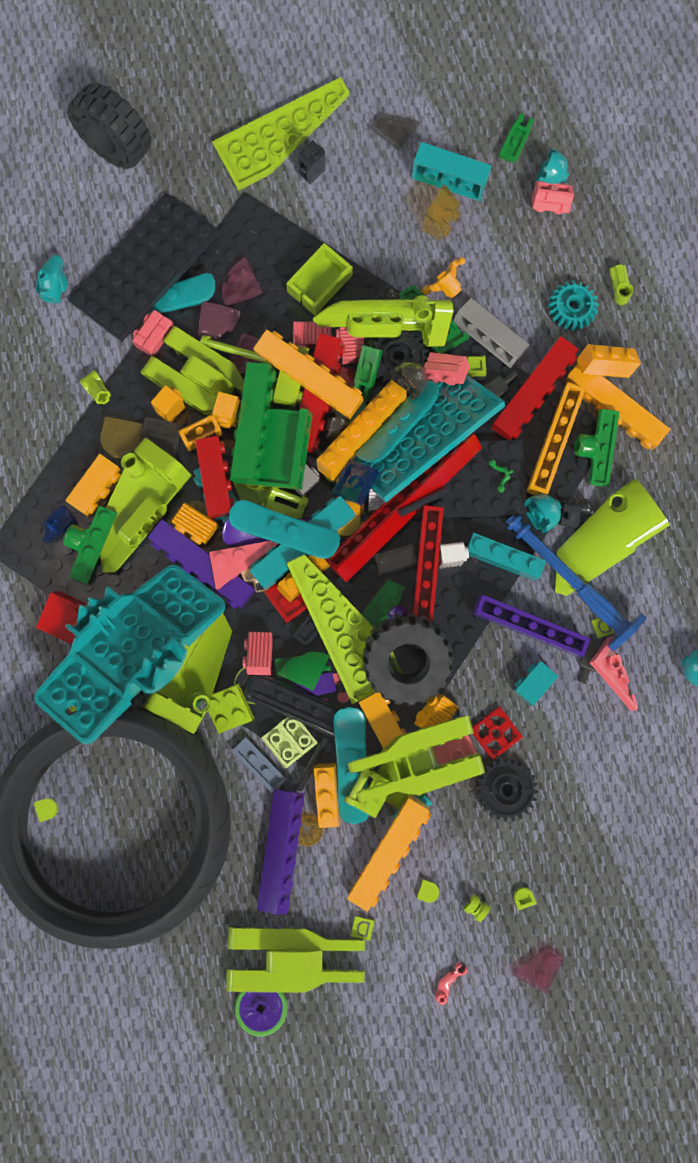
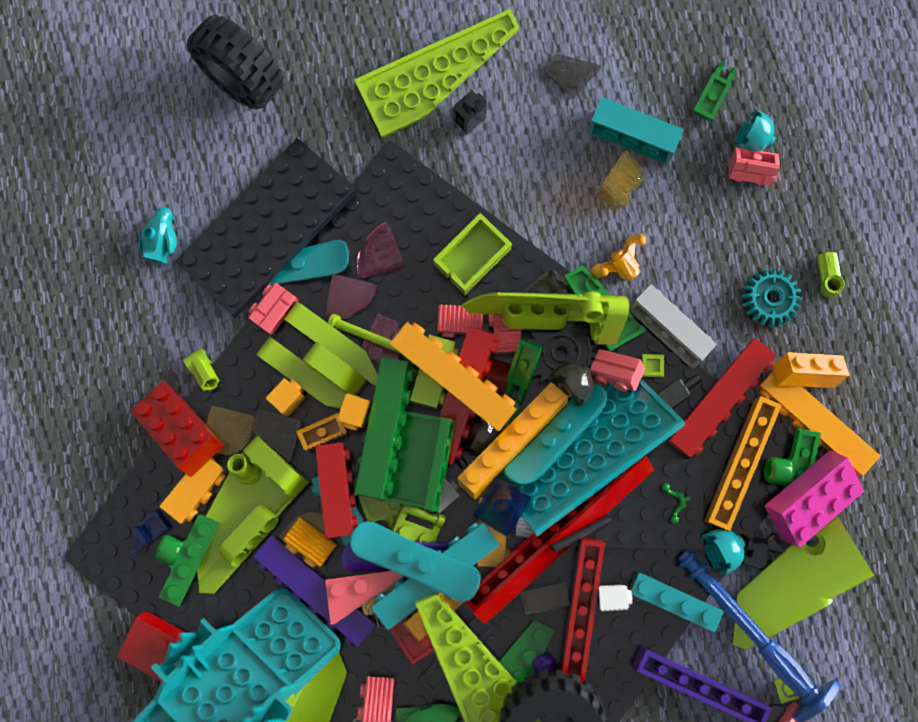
camera: 10 degrees right, 0 degrees up
(77, 435) = (177, 428): none -> red brick
(617, 465) = (814, 498): none -> dark pink brick

